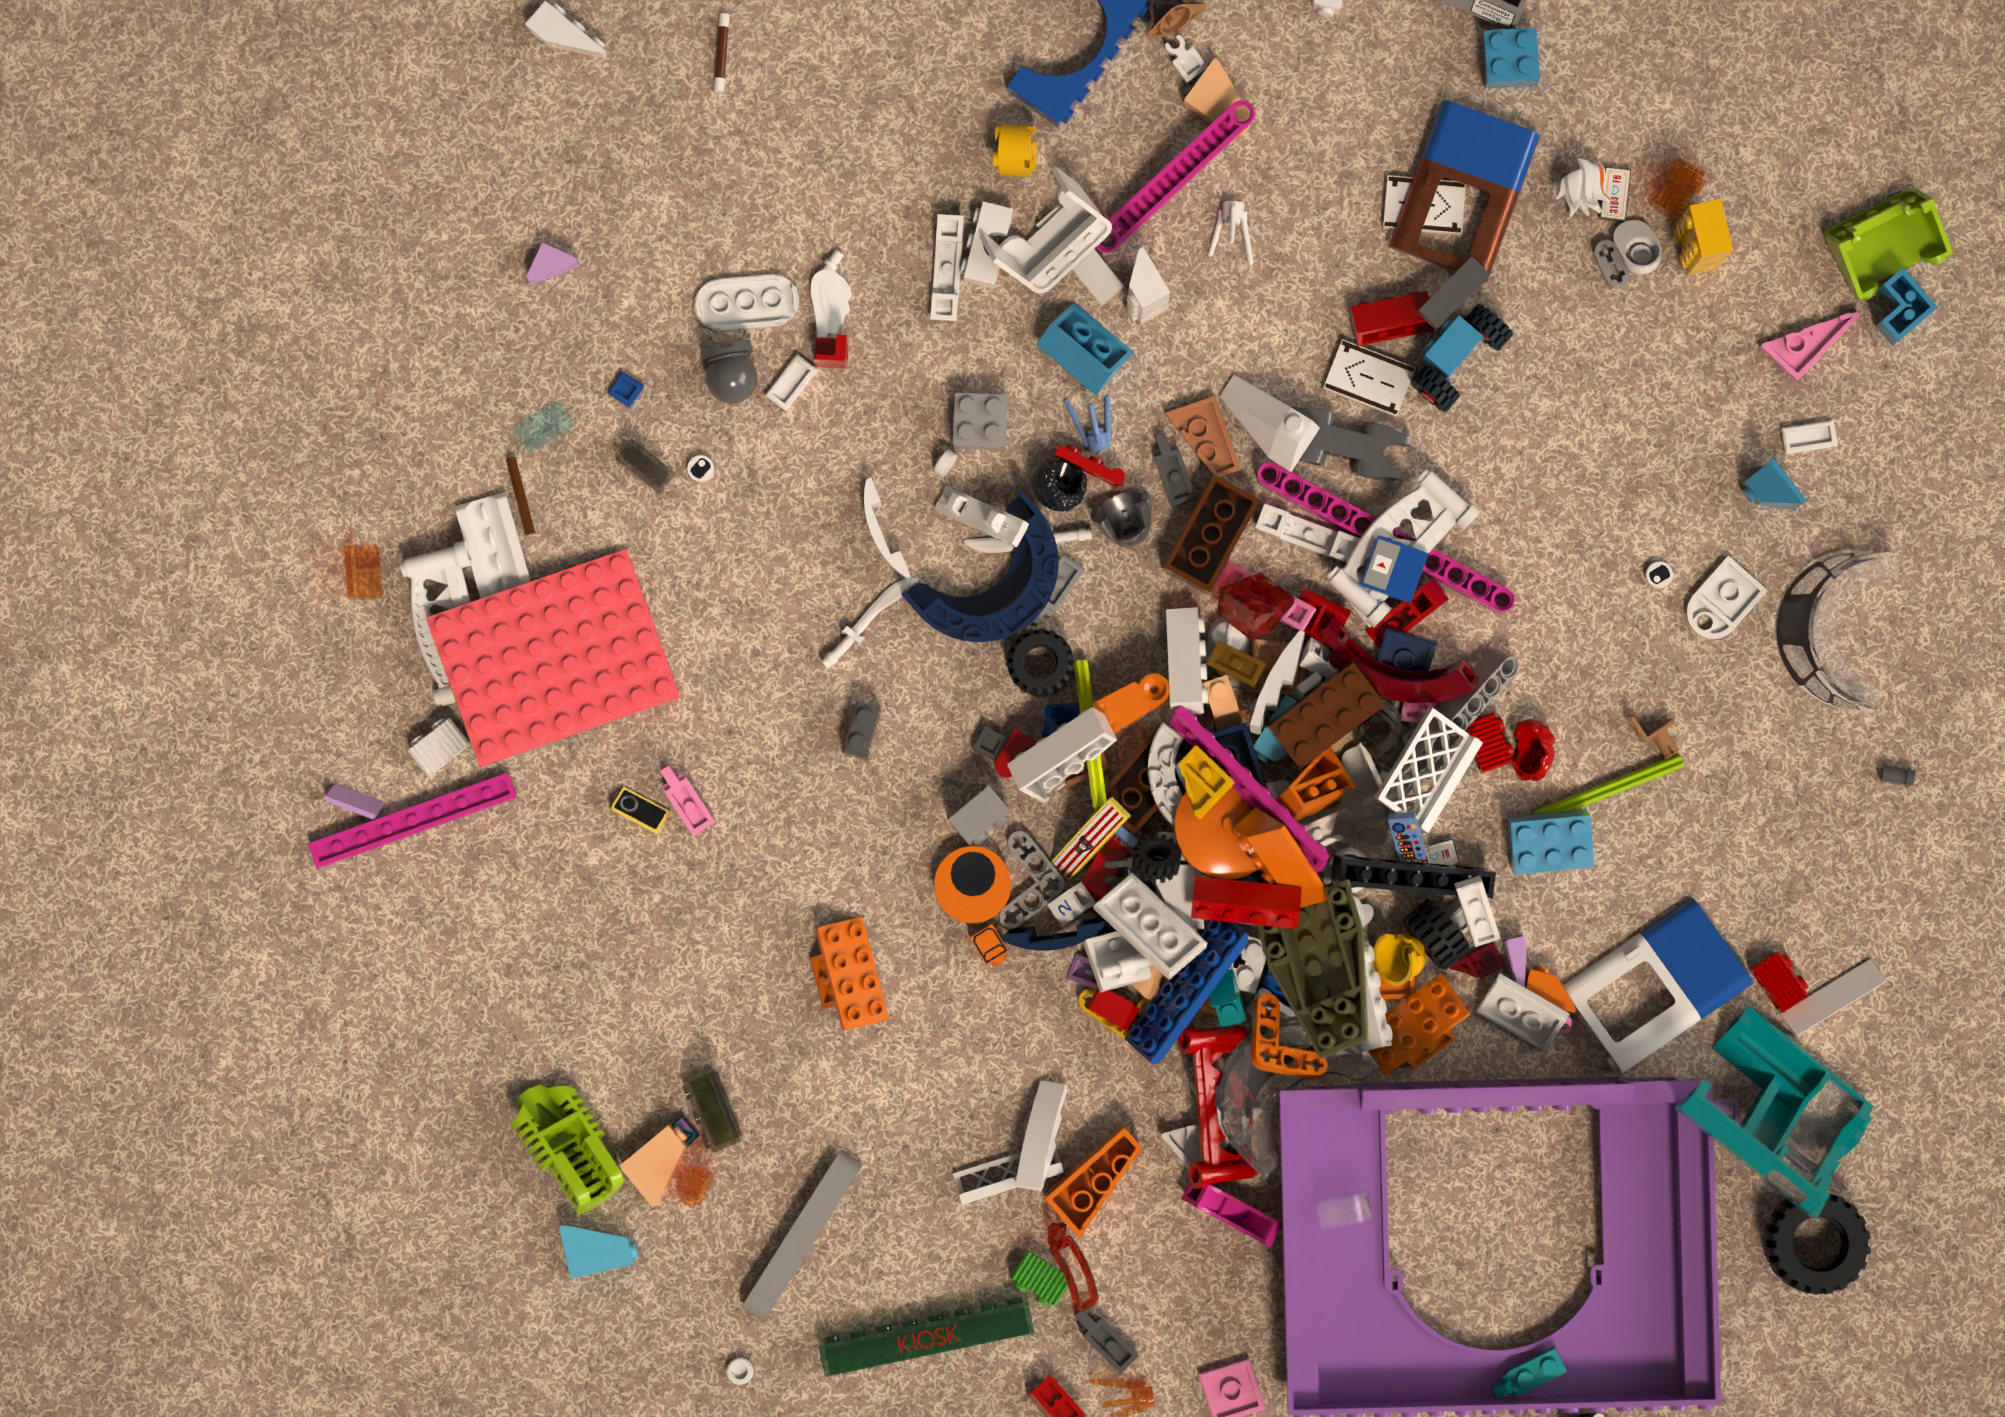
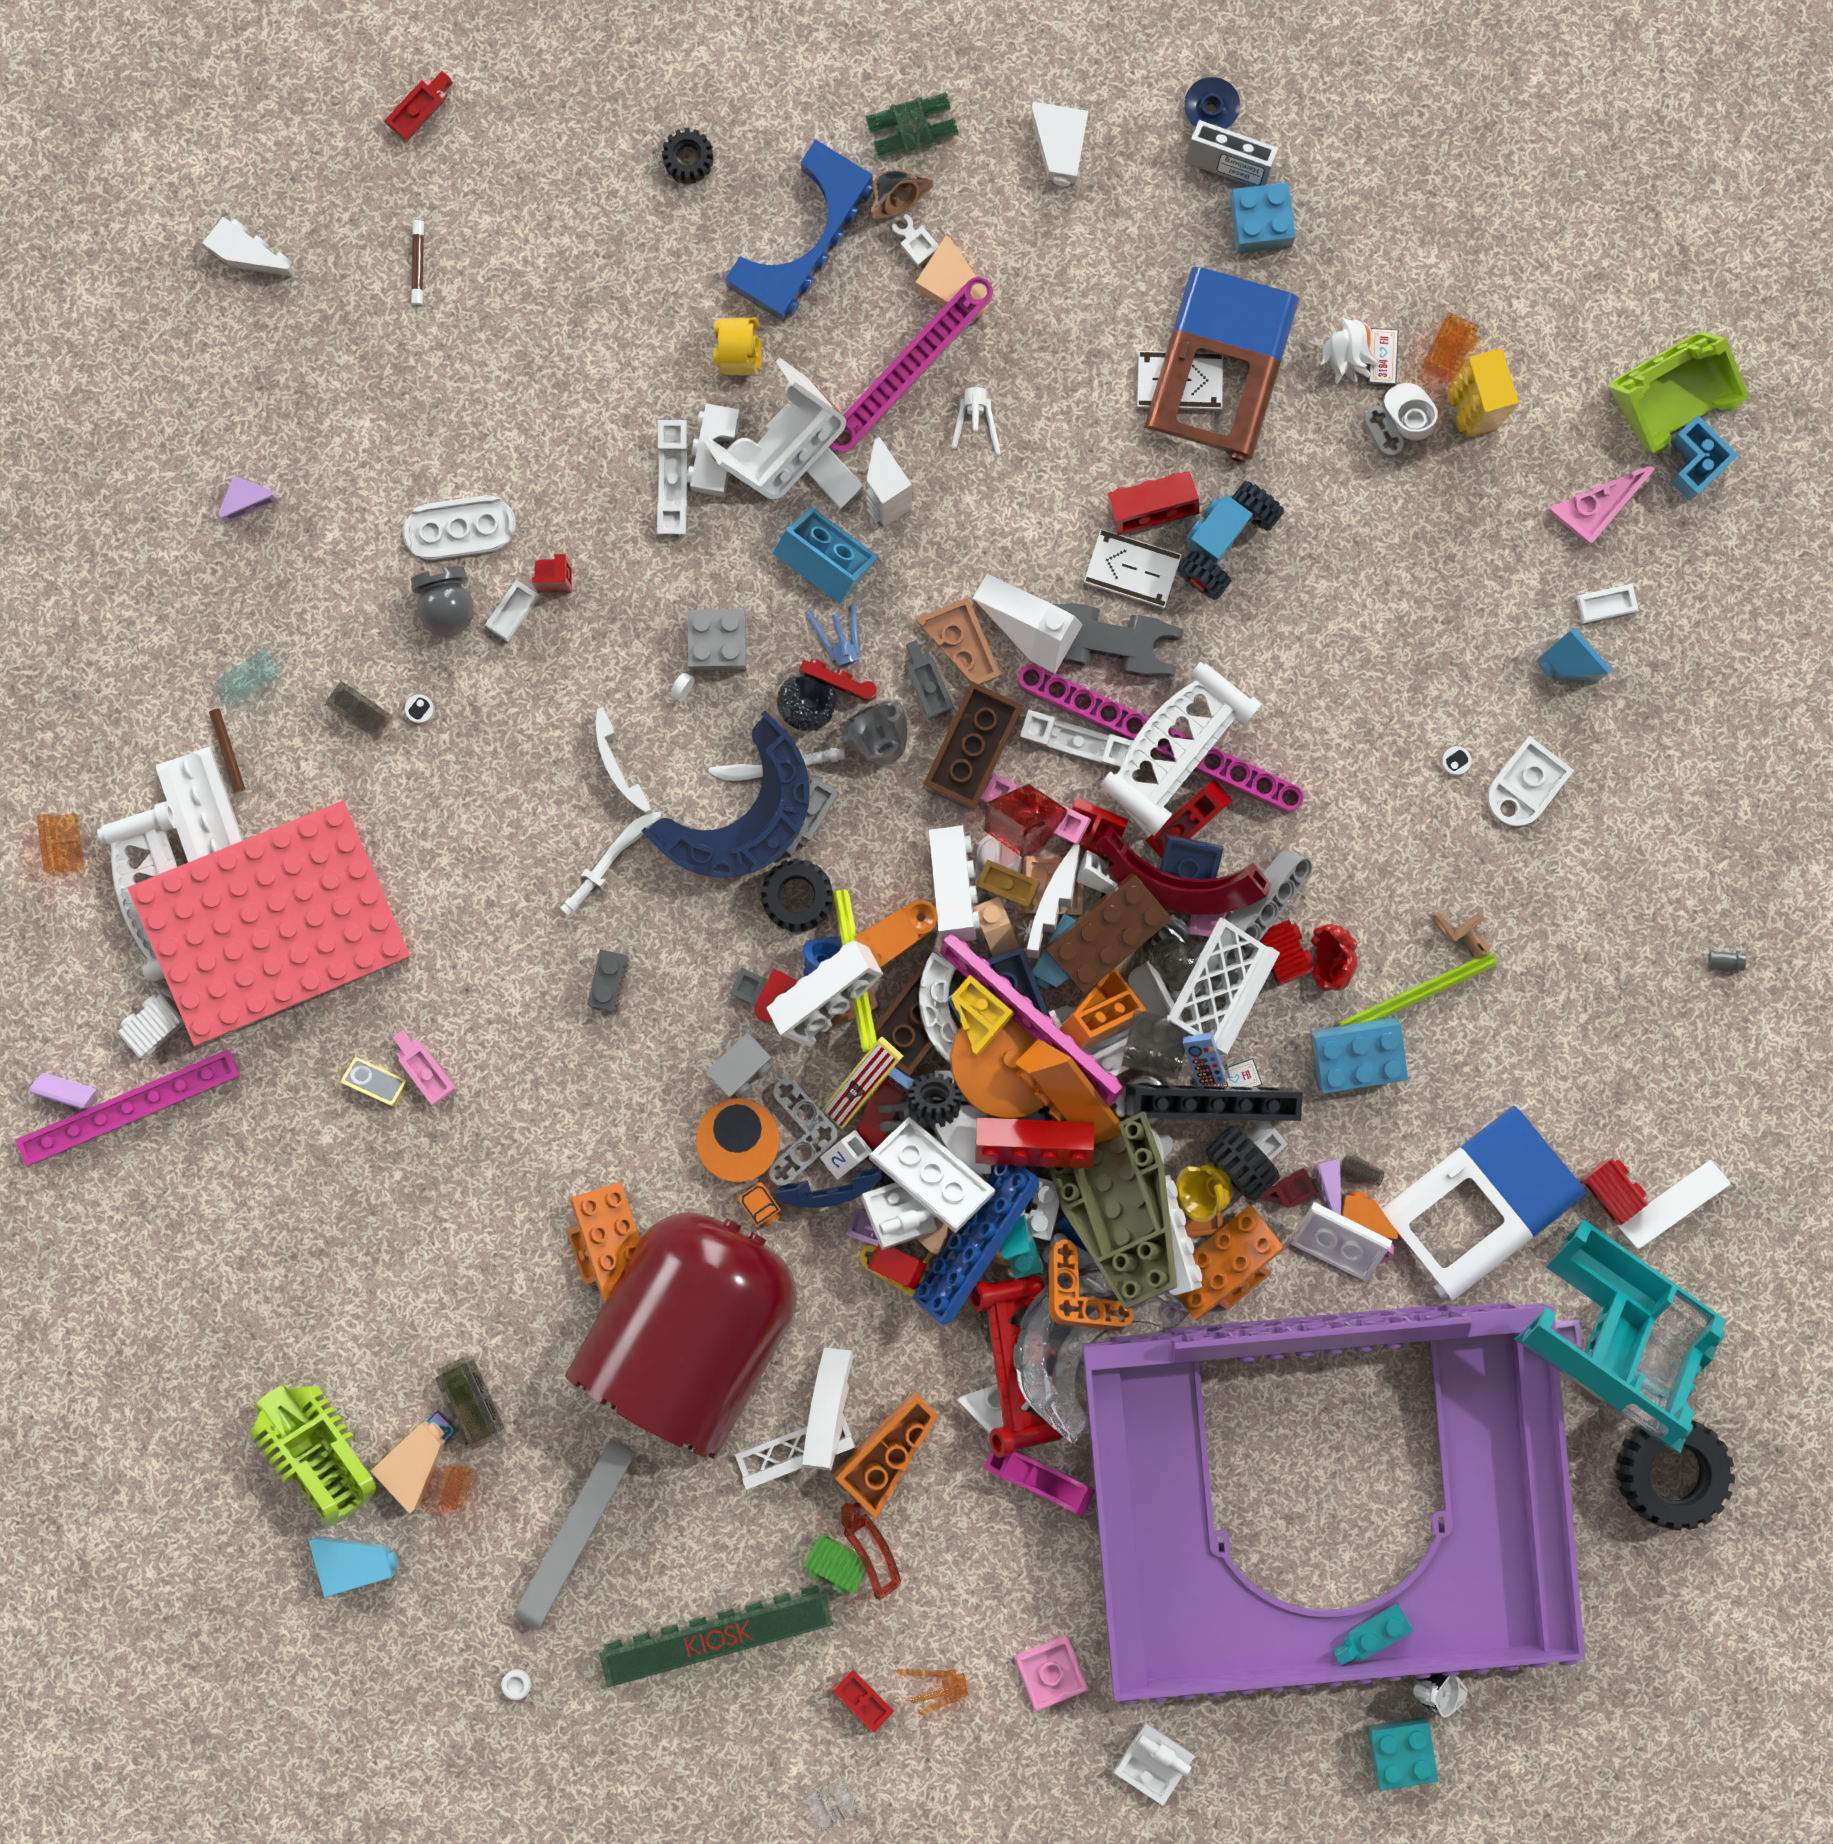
camera: 10 degrees left, 0 degrees up
(626, 390) = (334, 629): blue tile -> none
(830, 297) = (548, 516): white animal -> none
(918, 1054) = (688, 1330): none -> dark red cylinder
(981, 516) = (724, 741): white hinge -> none
(1106, 1341) = (912, 1627): dark grey hinge -> none
(1307, 685) = (1086, 903): white tile -> none
(1344, 1210) = (1167, 1470): clear brick -> none
(1394, 569) = (1172, 771): blue tile -> none
(1453, 293) = (1218, 471): dark grey tile -> none
(1477, 911) = (1285, 1135): white tile -> none
(1545, 949) = (1359, 1171): none -> clear smoke cone
(1808, 628) = (1621, 807): clear windscreen -> none

